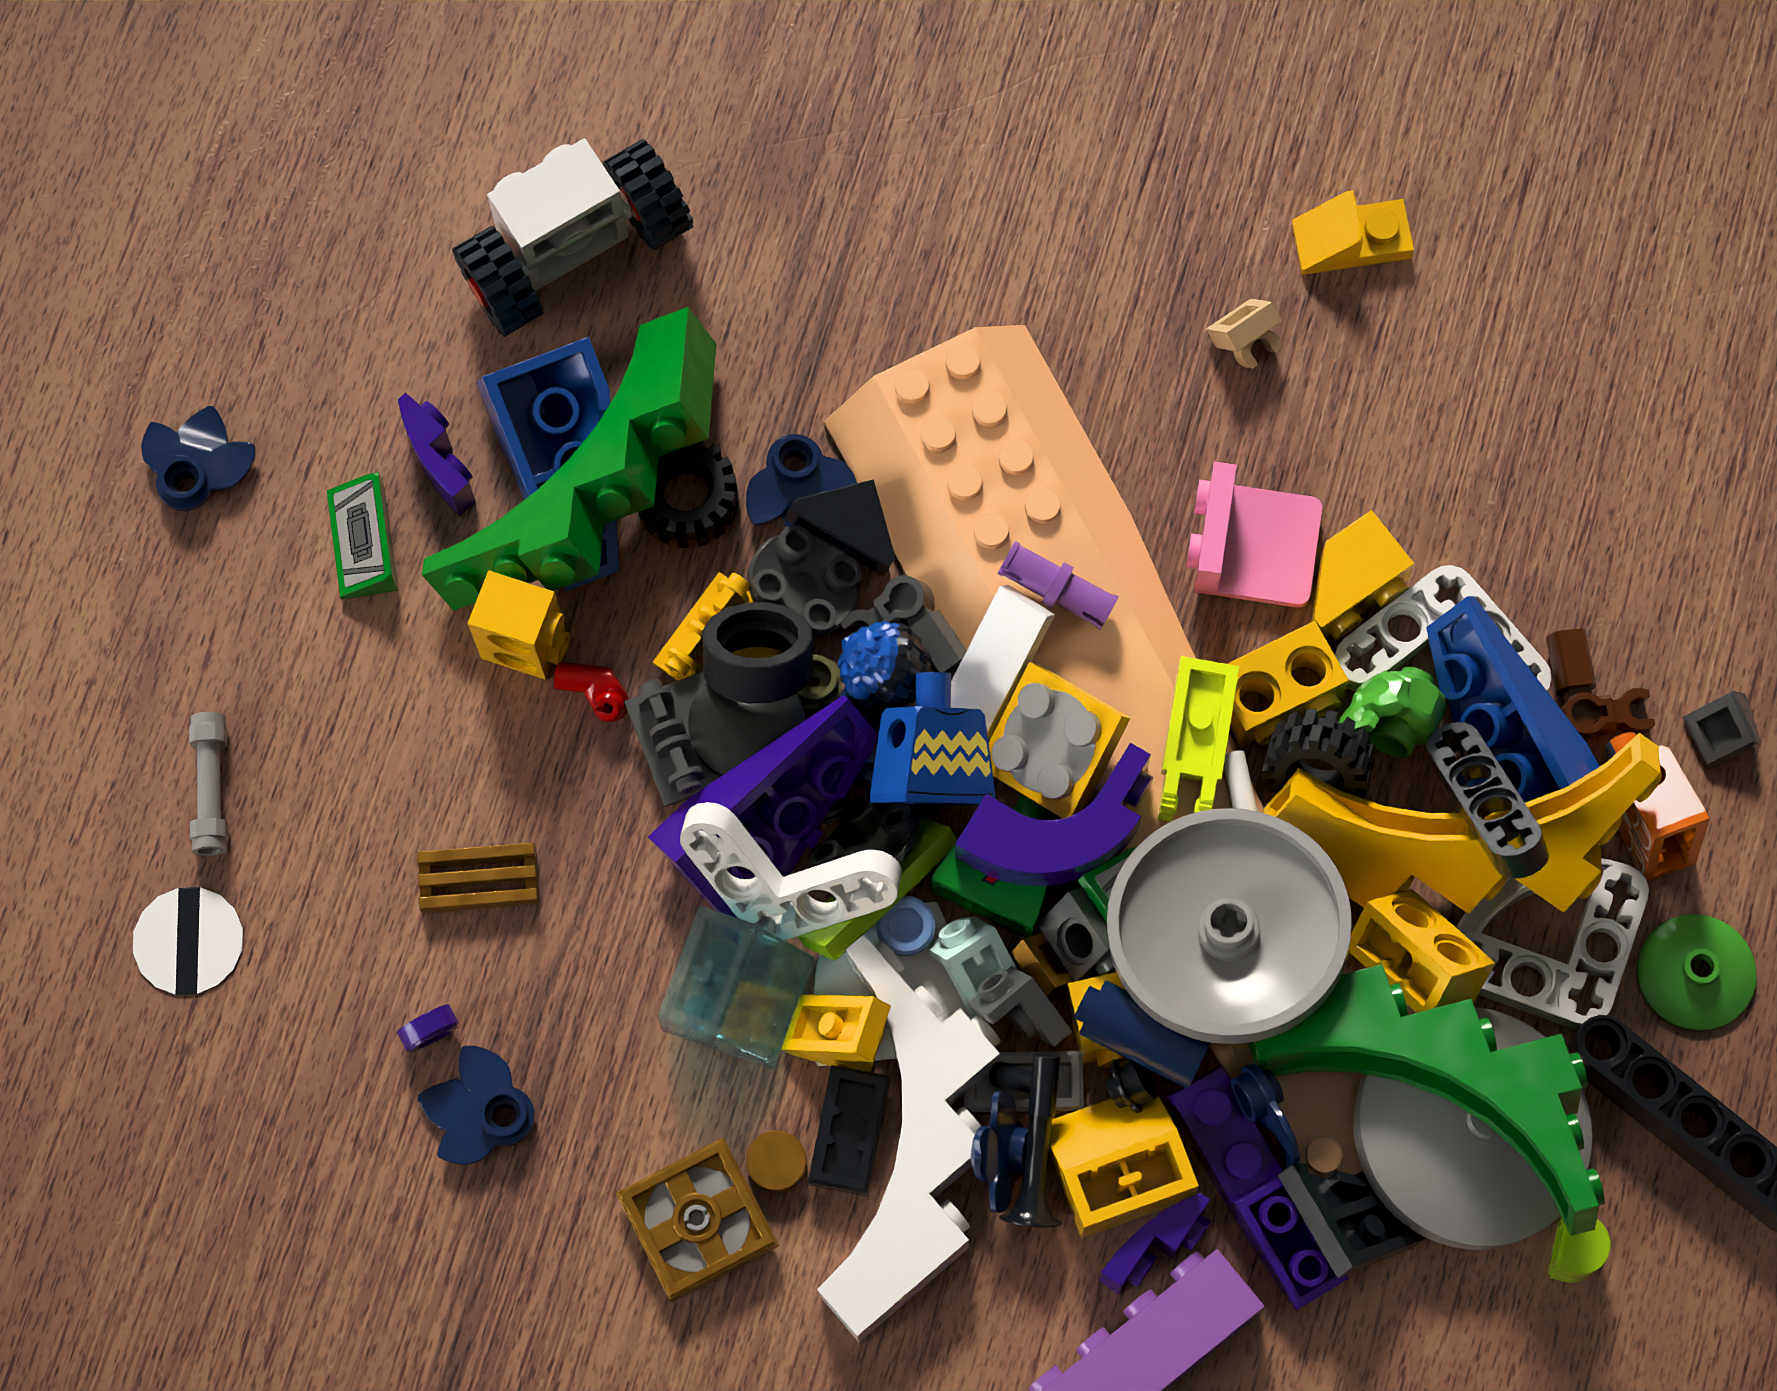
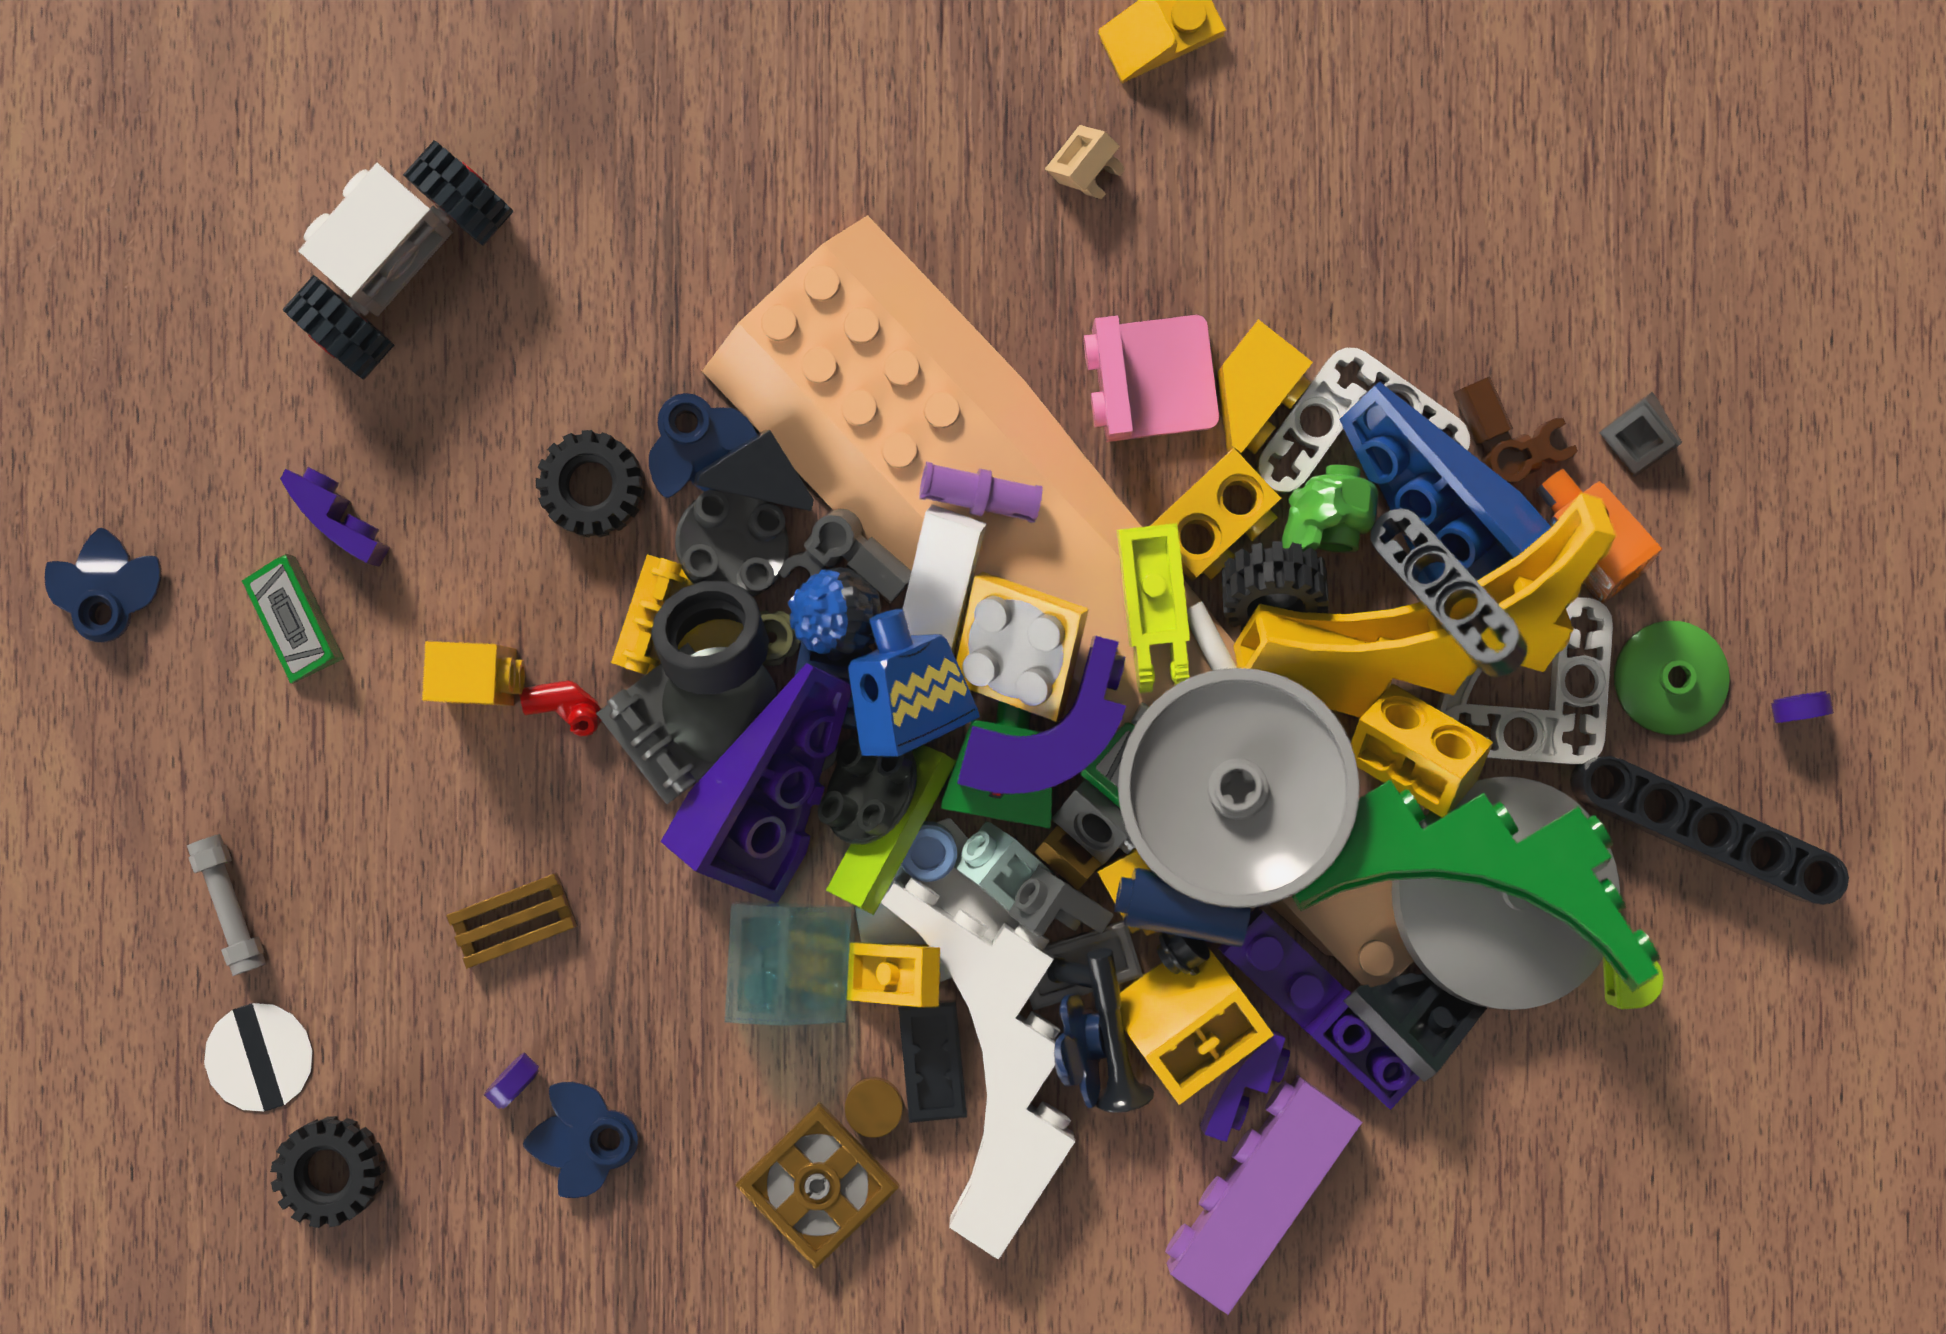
camera: 20 degrees left, 15 degrees up
(203, 1033) = (293, 1171): none -> black tyre
(544, 415) = (450, 470): blue wedge -> none
(611, 474) = (515, 498): green arch -> none
(868, 873) = (805, 874): white beam -> none
(1258, 1099) = (1308, 935): dark blue plate -> none

